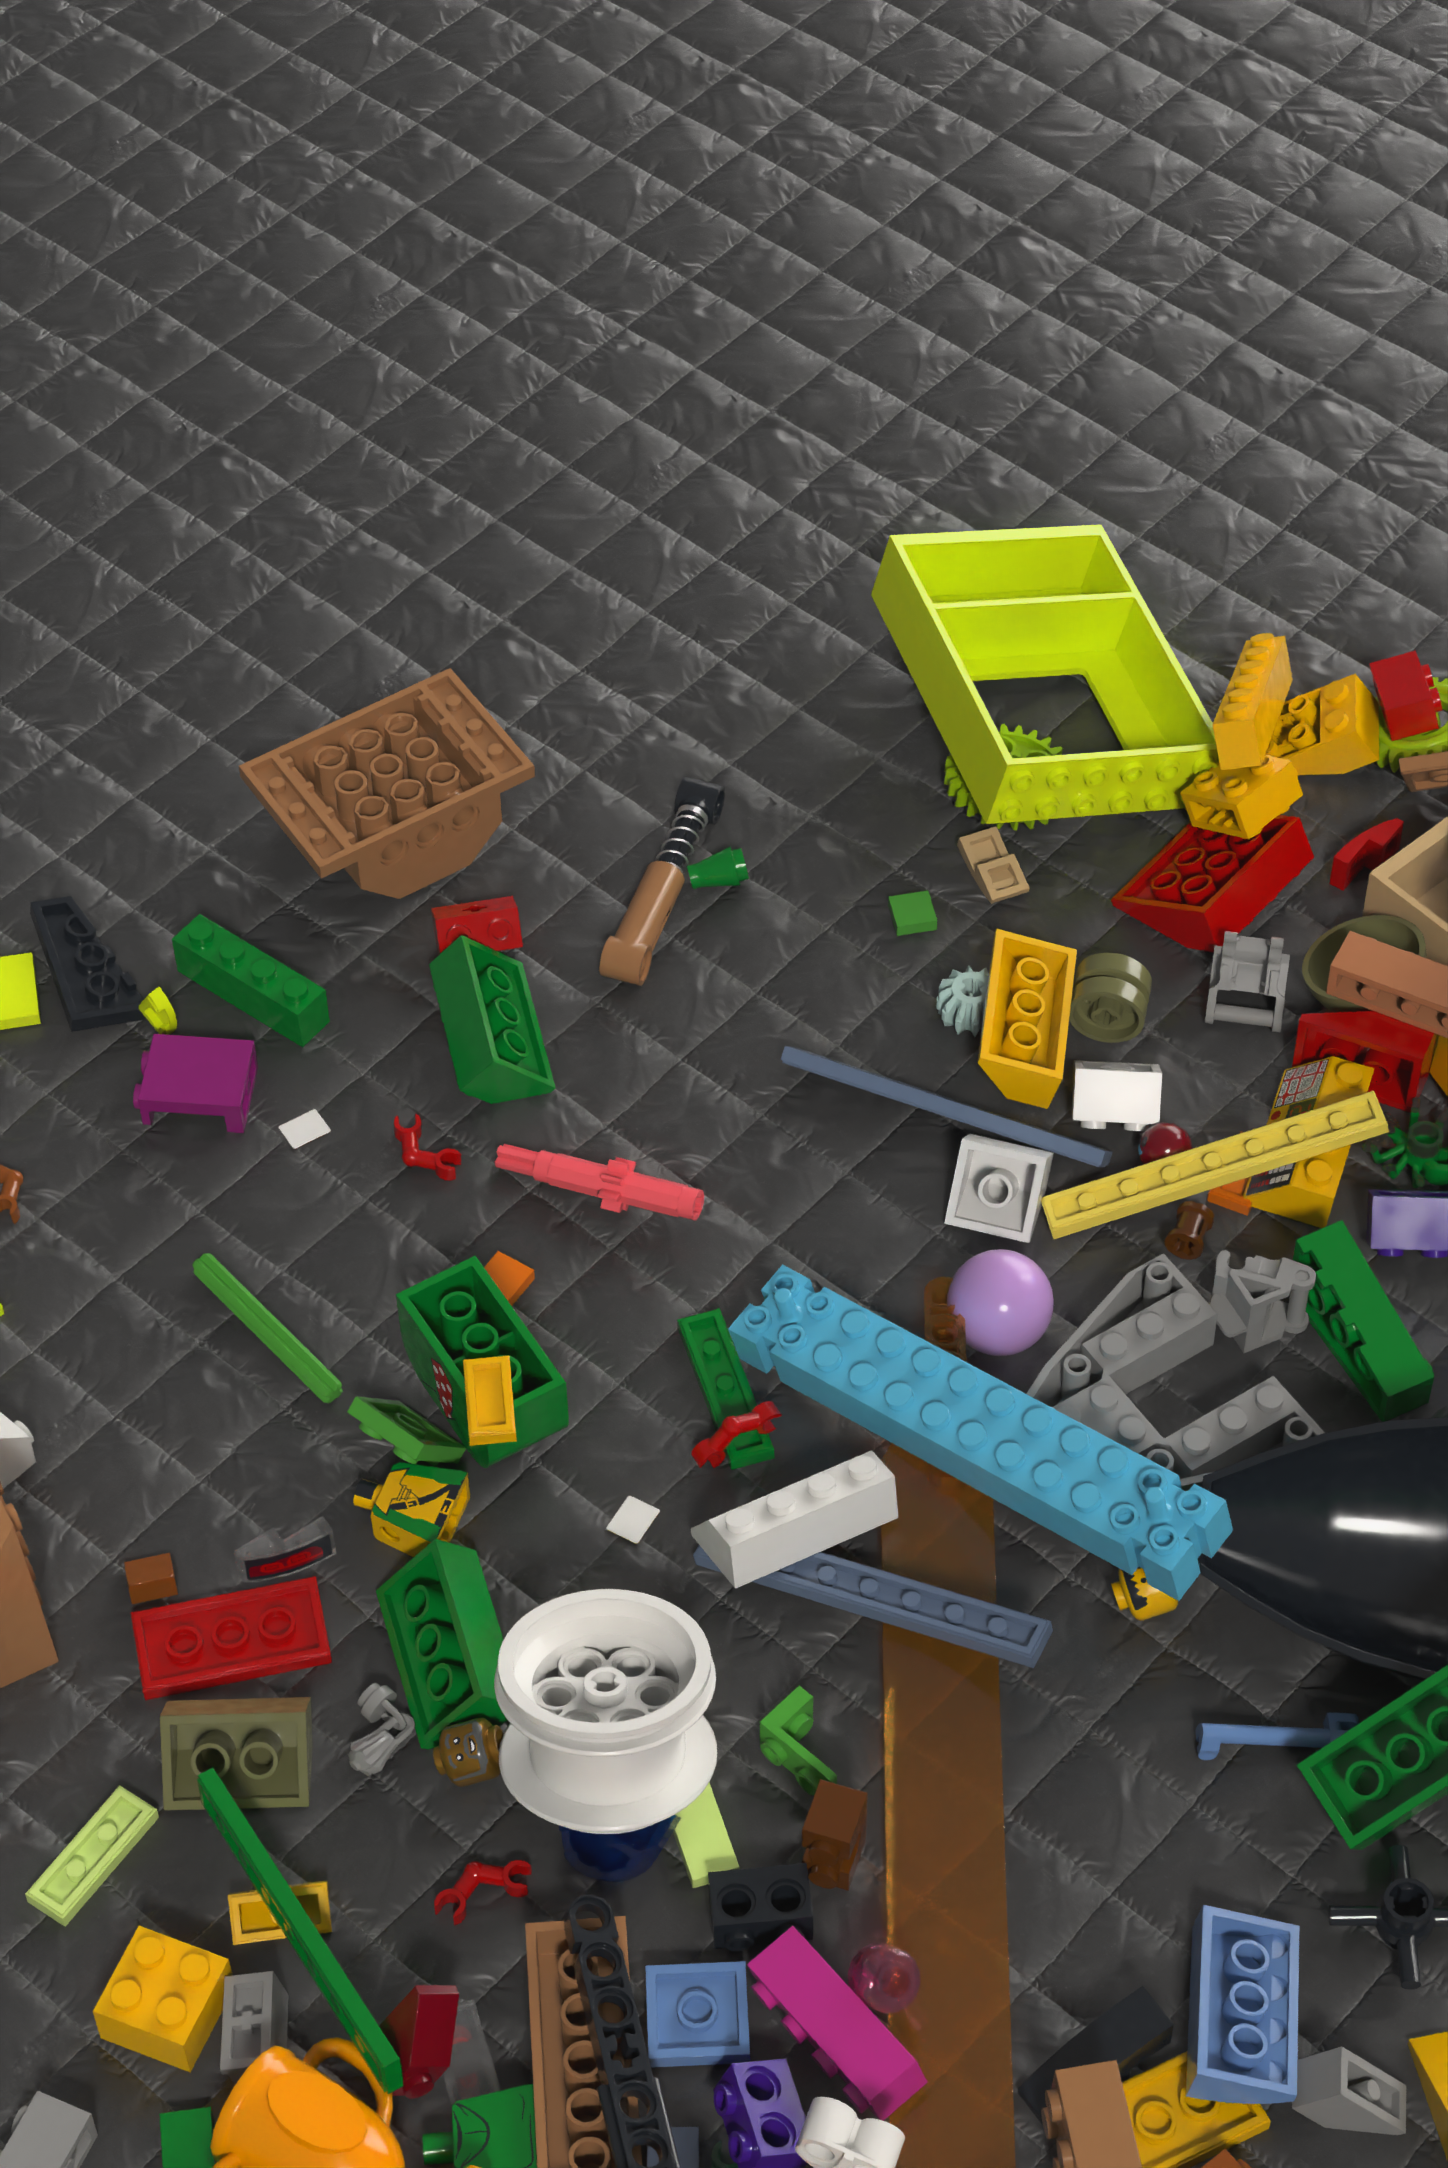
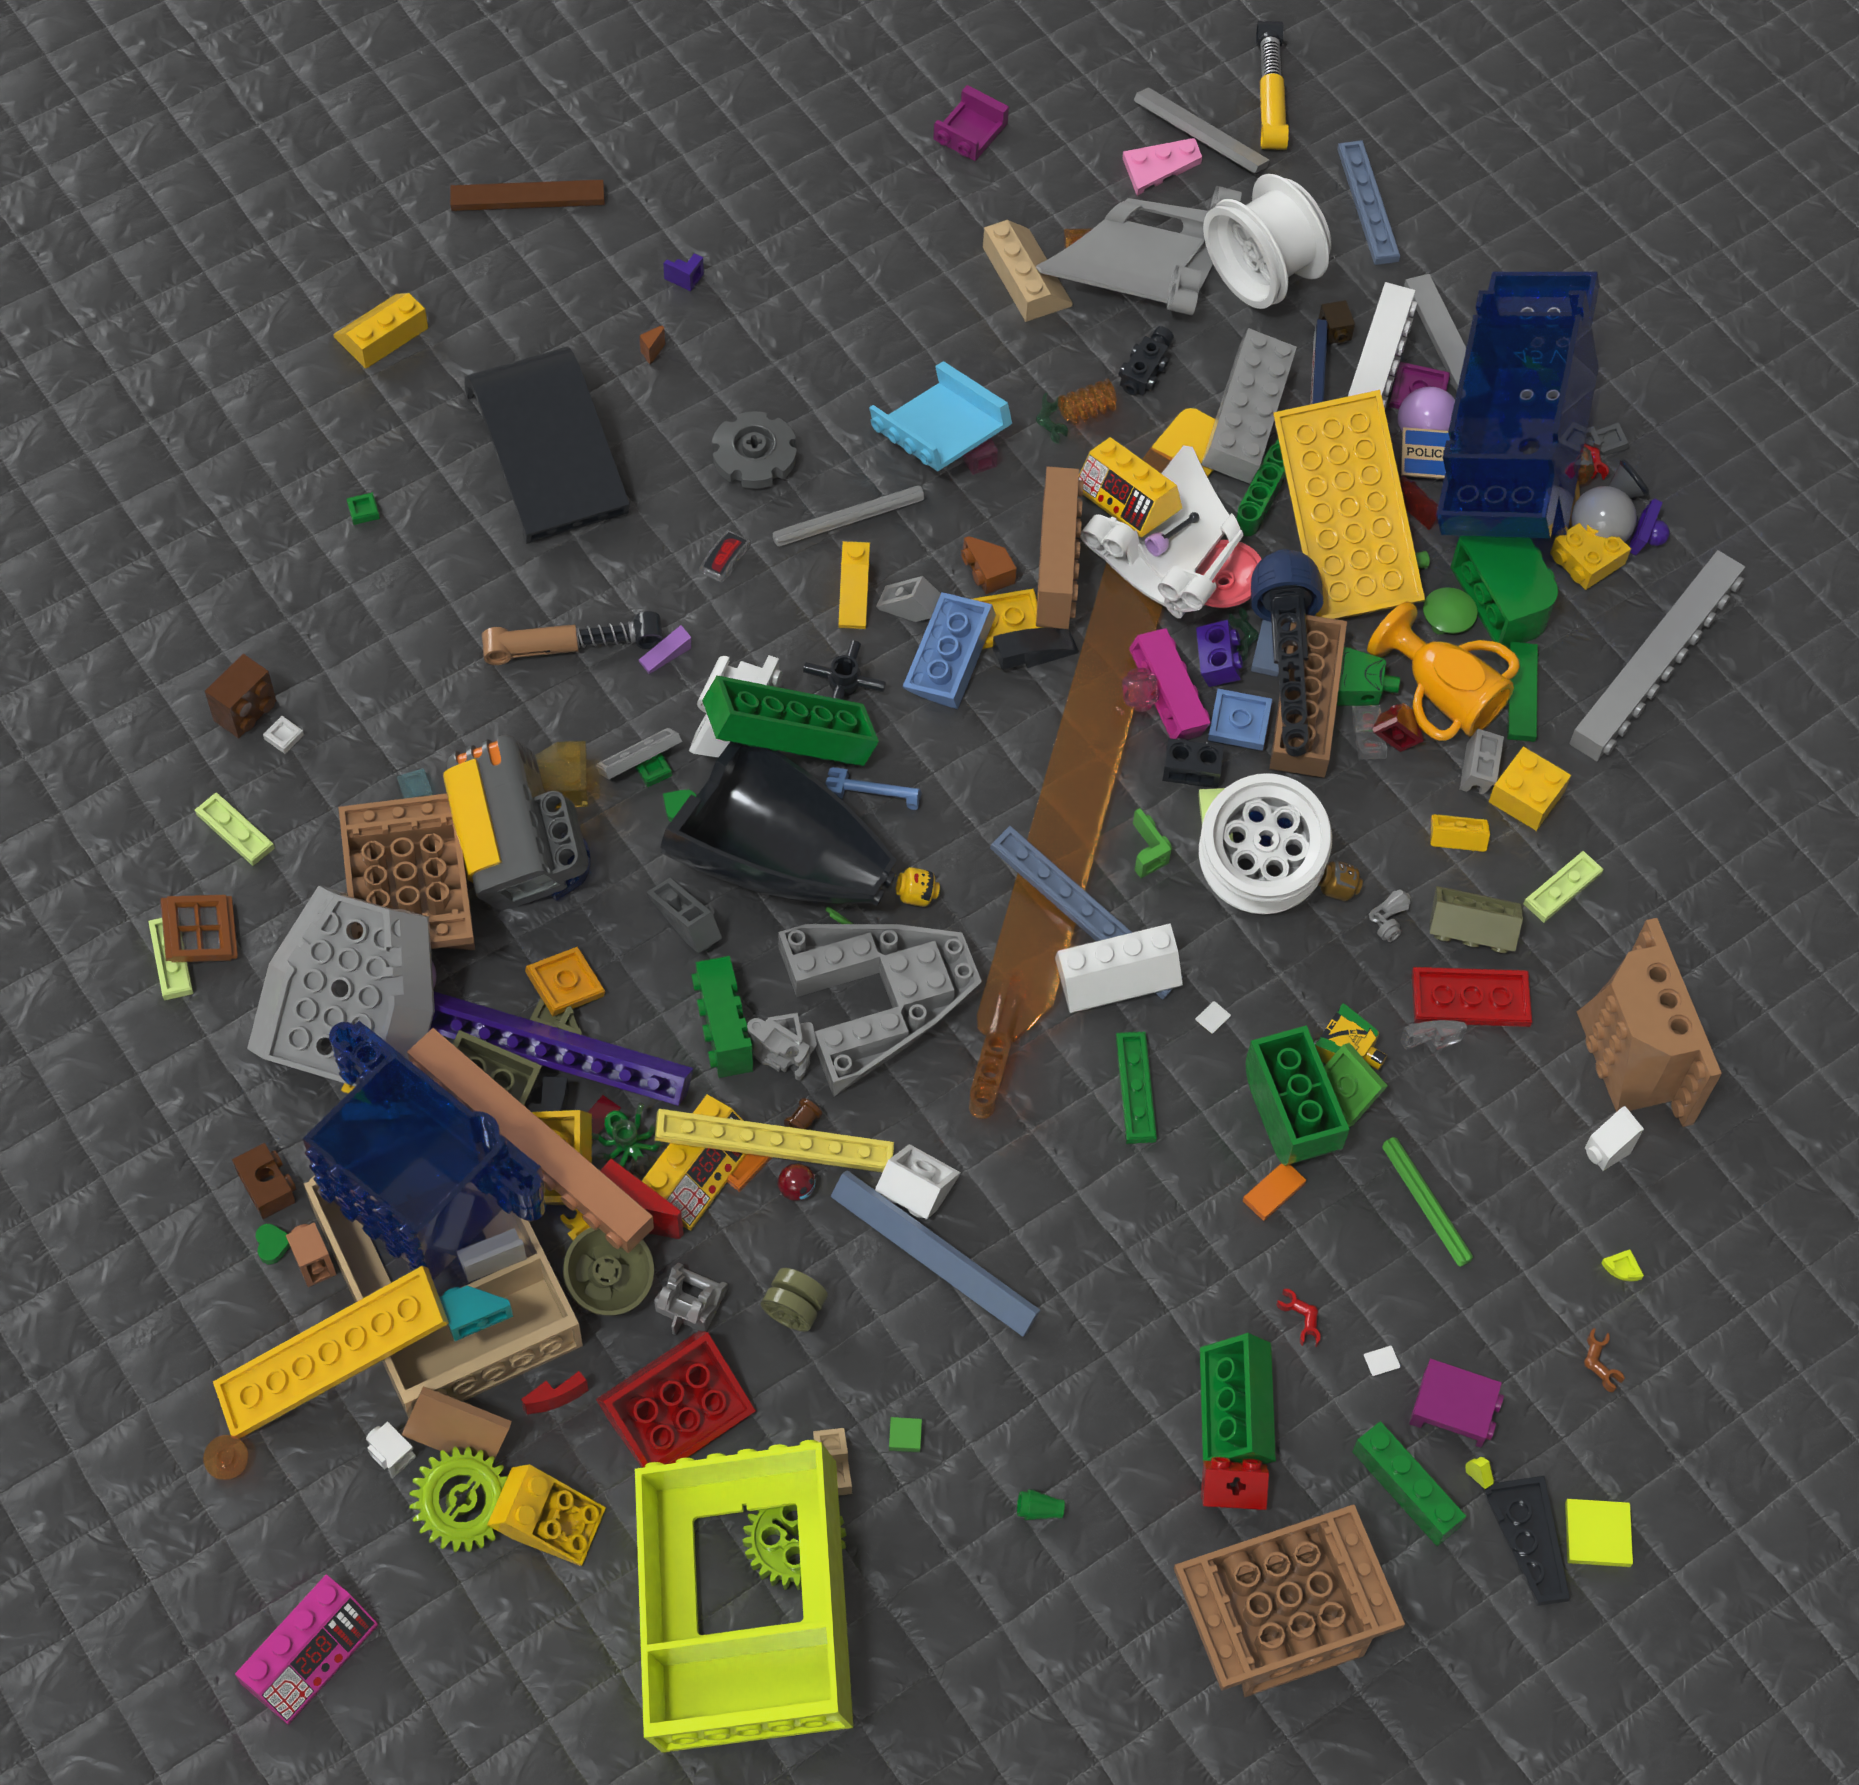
camera: 170 degrees left, 10 degrees up
(150, 1578) = (1517, 1043): dark orange slope -> none
(301, 1932) = (1455, 791): green tile -> none
(443, 1638) = (1341, 950): green slope -> none
(476, 1873) = (1348, 823): red arm -> none
(489, 1400) = (1302, 1034): yellow tile -> none
(613, 1182) = (1176, 1243): coral piece -> none
(630, 951) = (1086, 1501): medium nougat piece -> none
(732, 1426) = (1121, 1043): red arm -> none
(834, 1834) = (1145, 776): reddish brown brick -> none
(963, 1000) = (893, 1325): light aqua gear -> none
(983, 1432) = (1000, 975): medium azure brick -> none
(1002, 1300) = (945, 1091): lavender piece -> none
(1027, 1017) = (857, 1293): yellow slope -> none
(1116, 1094) = (812, 1236): white slope -> none
(1242, 798) = (635, 1436): yellow brick -> none
(1252, 702) = (595, 1513): yellow brick -> none
(1405, 695) = (471, 1504): red brick -> none

